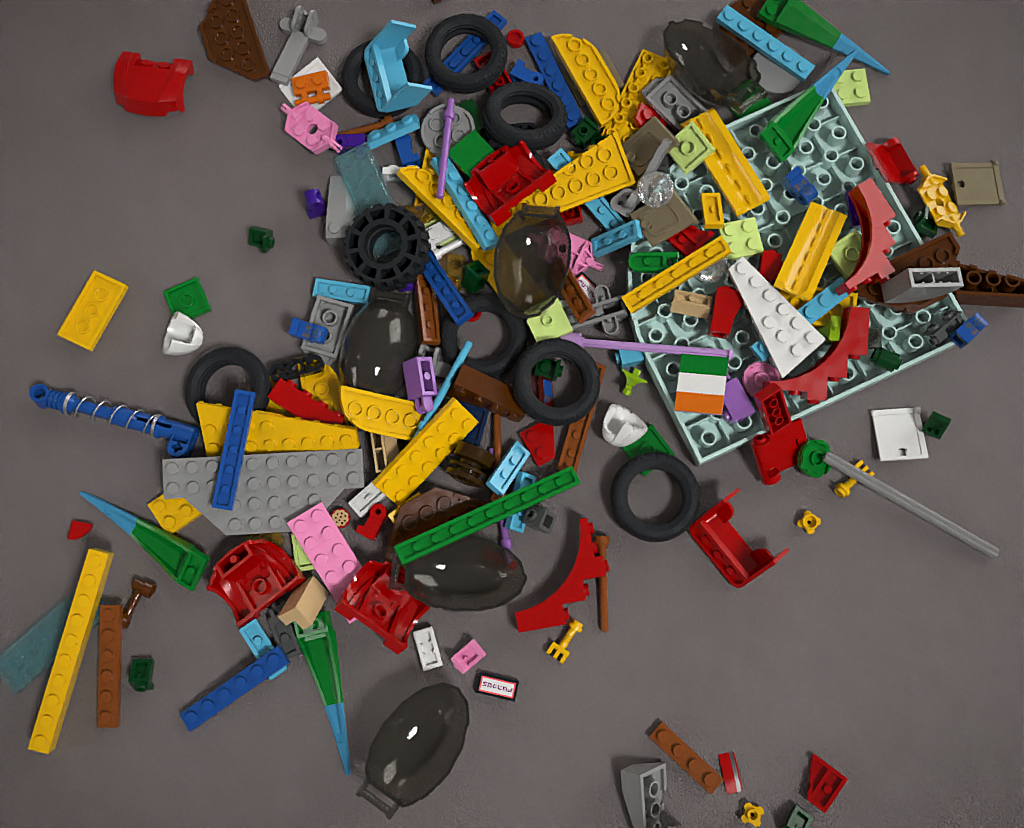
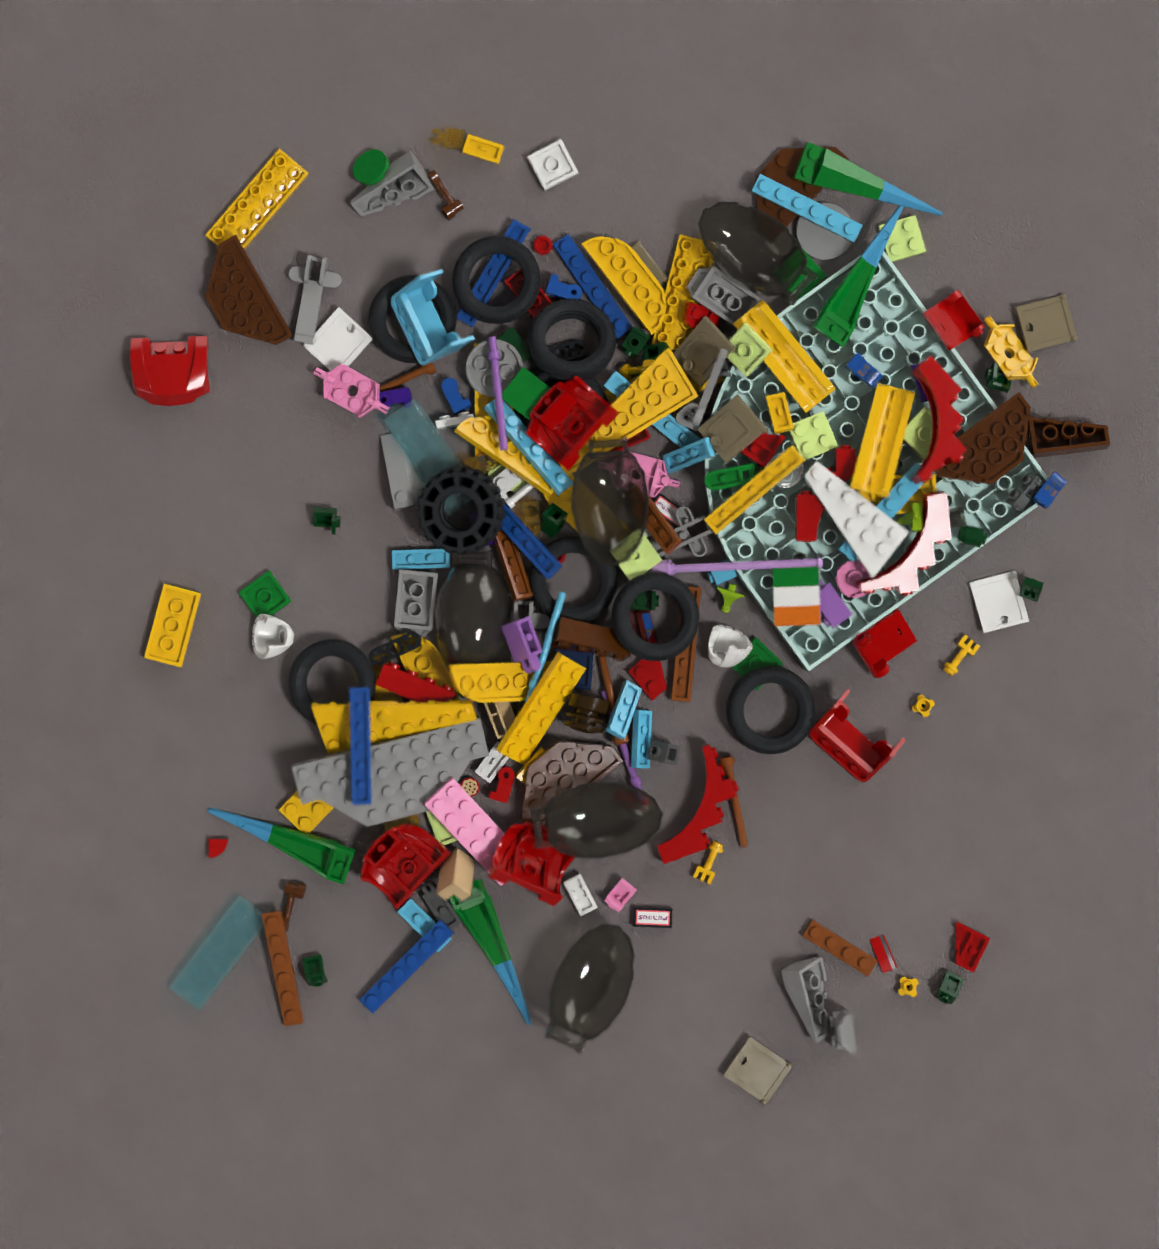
camera: 20 degrees left, 10 degrees up
(71, 651) = (245, 959): yellow brick -> none
(156, 424) = (232, 729): blue piece -> none
(307, 331) = (400, 610): blue leg -> none
(310, 84) = (338, 339): orange plate -> none
(314, 203) = (373, 472): dark purple leg -> none
(393, 131) = (437, 378): medium azure plate -> none
(486, 515) = (614, 760): green plate -> none
(655, 189) = (718, 404): clear head -> none
(691, 304) = (774, 512): tan slope -> none
(772, 408) = (868, 609): red piece -> none
(811, 456) = (919, 642): green tile -> none
(911, 505) = (1017, 671): light grey axle -> none
(921, 284) = (994, 460): light grey brick -> none

